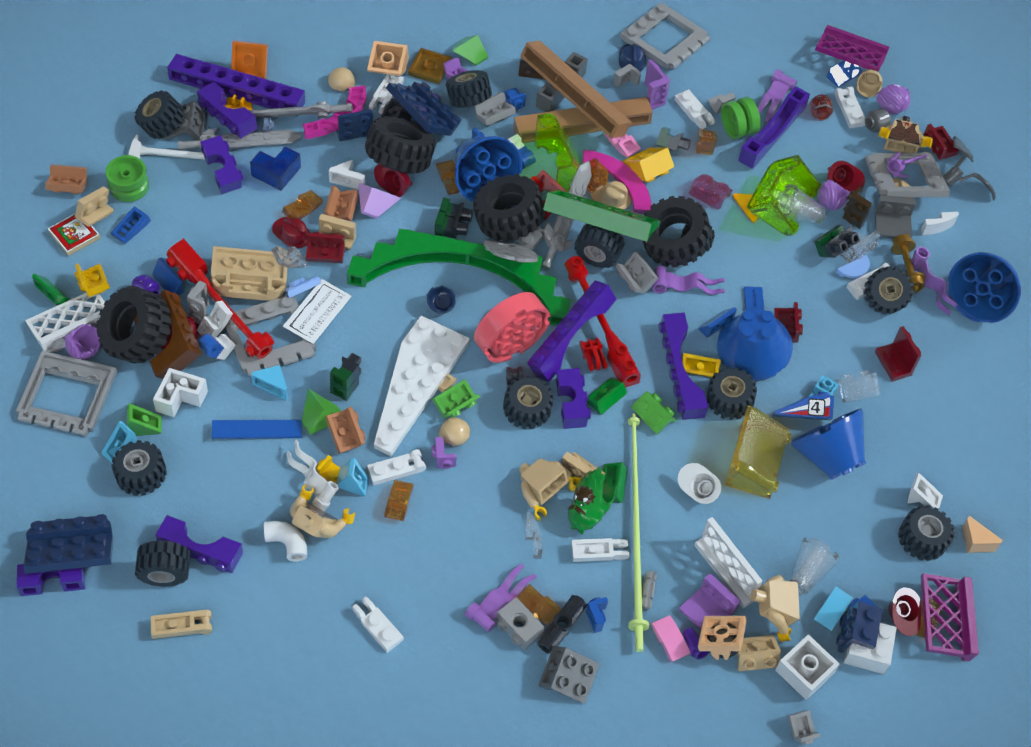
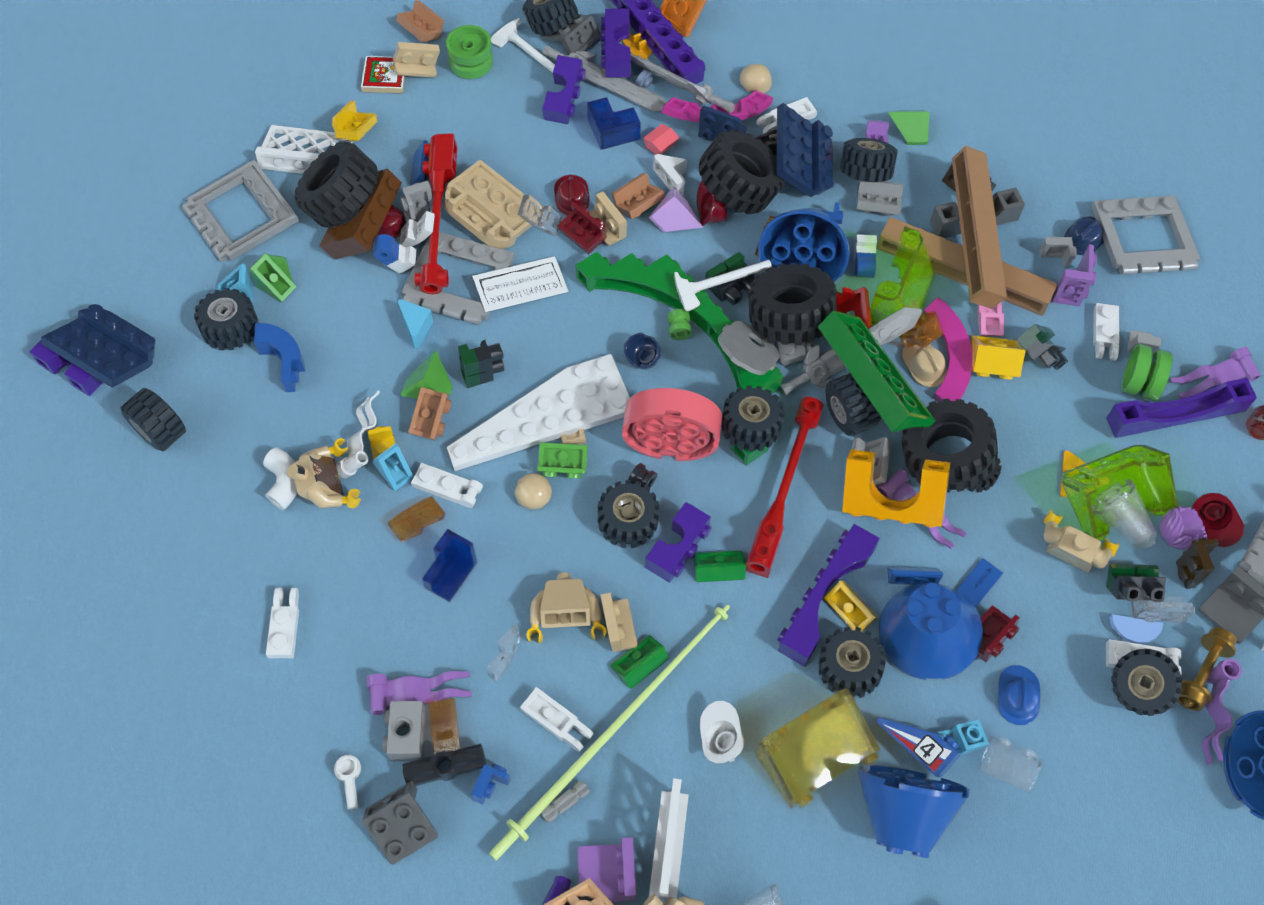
camera: 45 degrees right, 5 degrees up
(49, 289) = (316, 110): green slope -> none
(83, 342) = (287, 171): medium lavender hair -> none
(130, 217) = (449, 97): blue slope -> none
(146, 283) = (391, 158): dark purple head -> none
(179, 388) = (322, 270): white brick -> none
(181, 624) = (124, 487): tan plate -> none
(199, 458) = (279, 343): none -> blue arch
(222, 554) = (217, 448): dark purple arch -> none
(256, 429) = (362, 357): blue piece -> none
(301, 285) = (527, 249): light blue tile -> none
(303, 206) = (607, 177): clear orange slope -> none
(318, 158) = (660, 139): none -> coral piece
(388, 58) = (816, 84): light nougat slope -> none
(429, 66) = (855, 114): pearl gold tile -> none
(436, 242) = (687, 290): none -> white piece
(443, 460) = (495, 501): medium lavender bracket -> none
(447, 269) = (679, 324): none -> bright green wheel
(451, 510) = (452, 565): none -> clear blue panel
(506, 673) = (347, 770): none -> white plate
(515, 98) = (913, 200): blue bracket -> none
(549, 356) = (784, 458): dark purple arch -> none
(555, 290) = (752, 418): none -> black wheel
(590, 501) = (590, 662): green head -> none
(593, 354) = (745, 511): red arm -> none
(653, 412) = (751, 619): bright green bracket -> none
(671, 638) = (537, 871): bright pink slope -> none
(693, 277) = (864, 499): none -> light orange arch
(706, 141) = (1084, 372): clear orange slope -> none
(710, 191) = (1040, 429): clear pink bracket -> none
(787, 243) = (1076, 546): none -> tan torso
(829, 347) = (1018, 695): none -> blue piece
(900, 356) = (1091, 766): dark red bracket -> none

